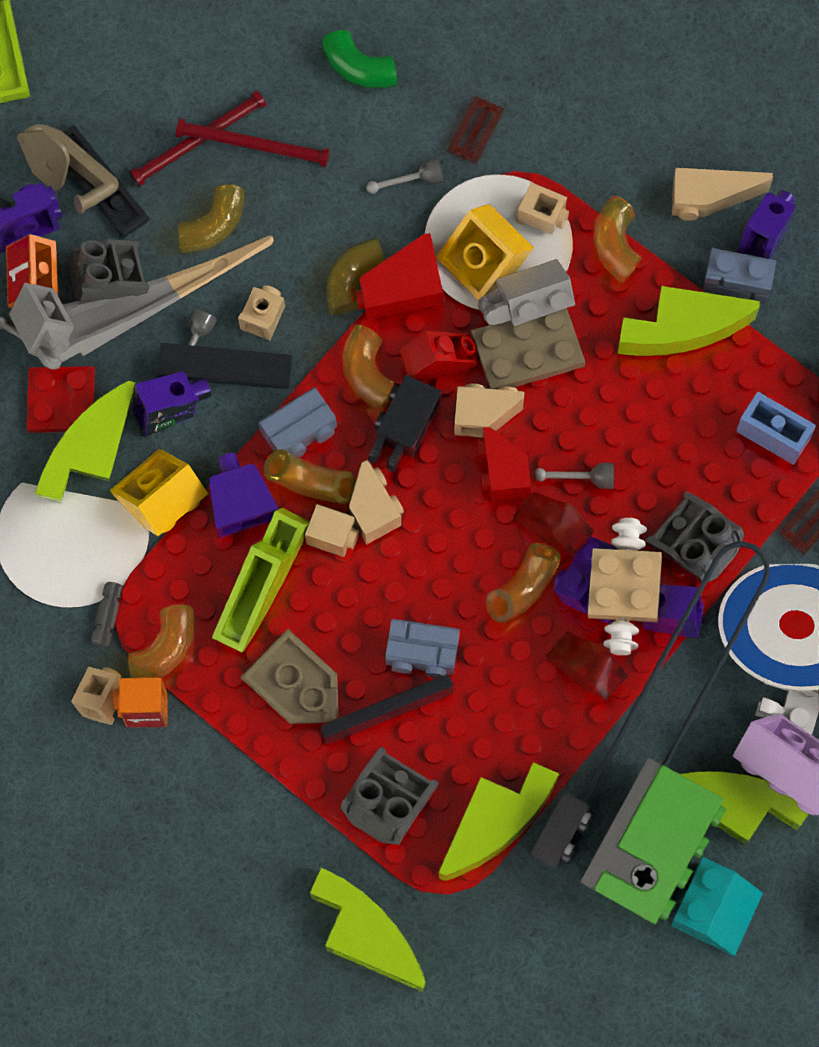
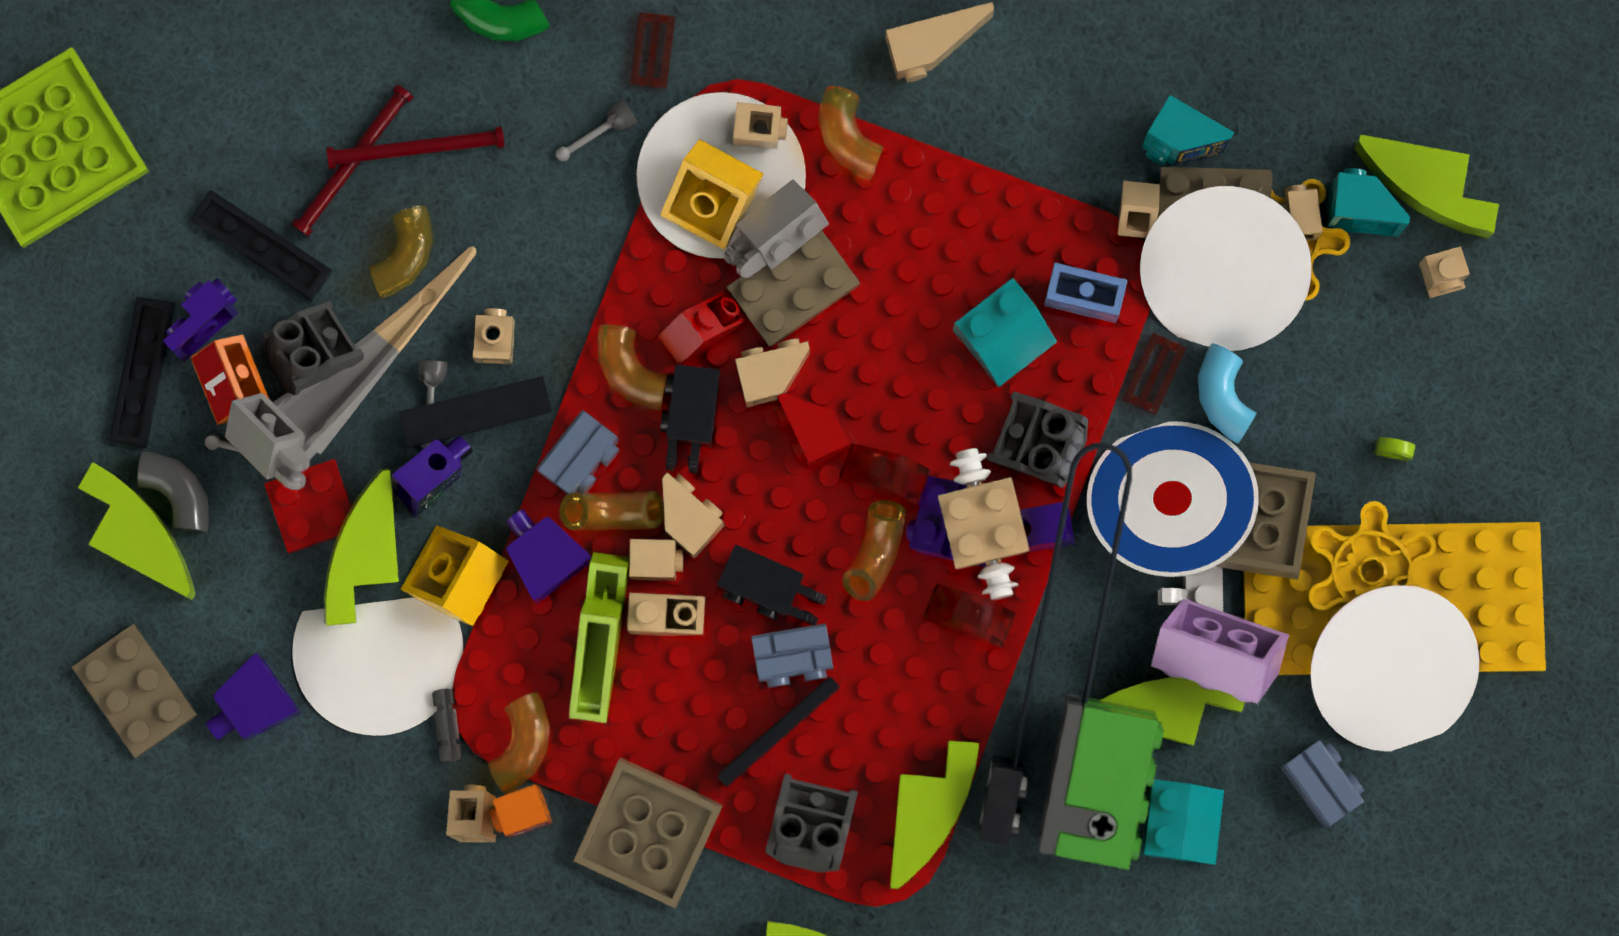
camera: 20 degrees left, 10 degrees up
(51, 153) = (202, 238): dark tan piece -> none
(244, 758) = (648, 832): none -> dark tan plate
(295, 682) = (672, 734): dark tan tile -> none
(323, 577) = (665, 614): none -> tan slope
(346, 272) = (571, 264): clear yellow cylinder -> none
(402, 282) = (635, 257): red slope -> none
(419, 583) = (766, 586): none -> black hinge
(601, 475) = (917, 403): hinge -> none
(686, 323) = (952, 203): lime slope -> none
(695, 440) = (1005, 332): none -> teal slope
(739, 275) = (992, 128): sand blue brick -> none
(769, 220) = (1005, 65): dark purple torso -> none

